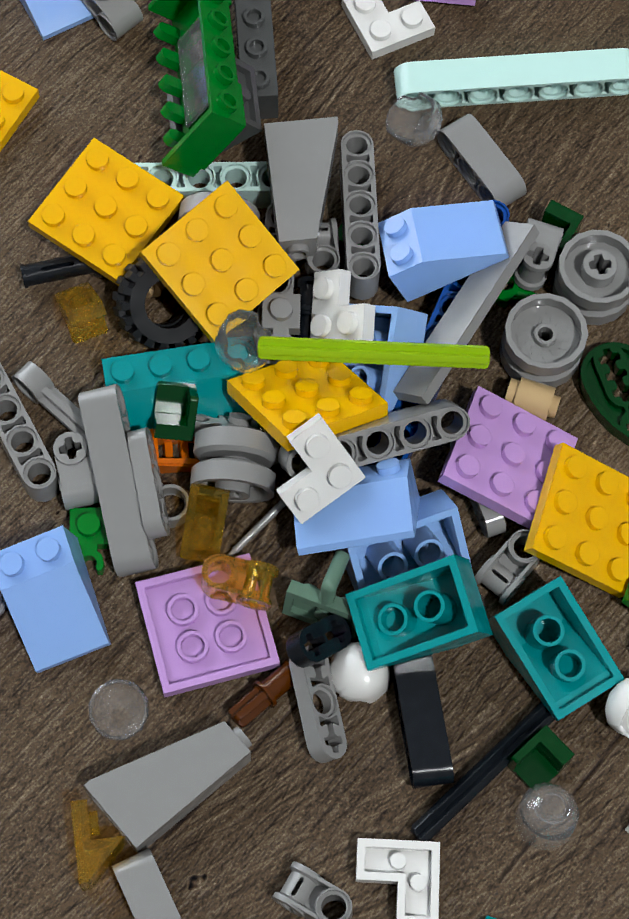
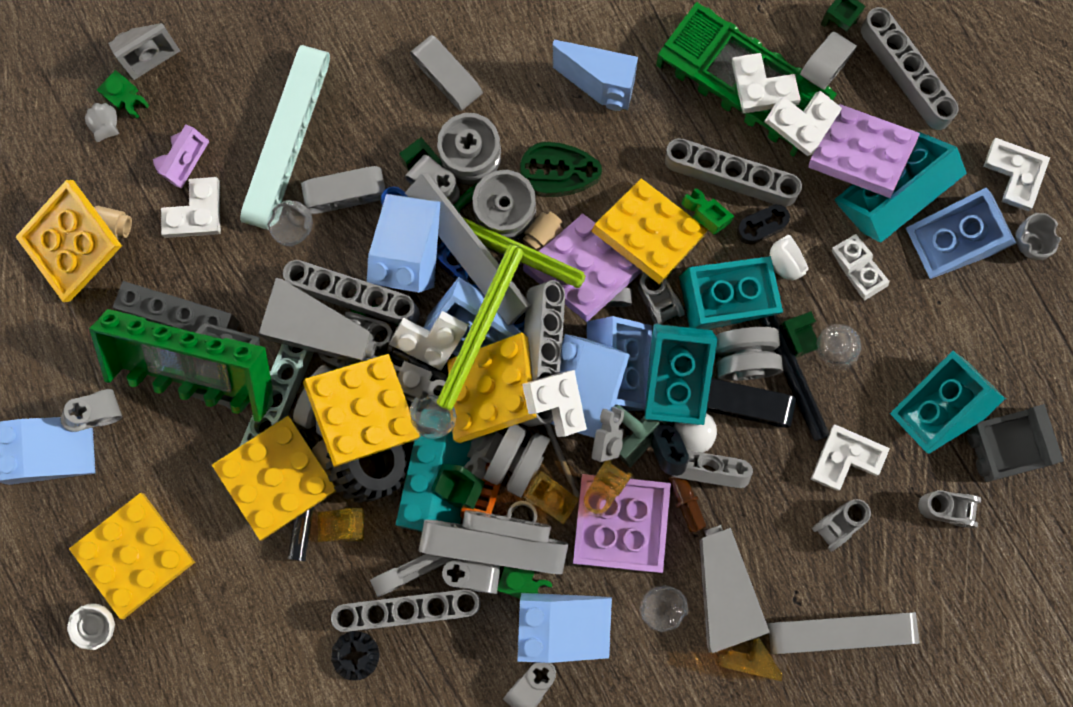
camera: 60 degrees left, 10 degrees up
(300, 559) = (609, 438): none -> light grey plate
(483, 693) = (748, 354): none -> light grey wheel
(489, 378) = (530, 256): none -> lime axle

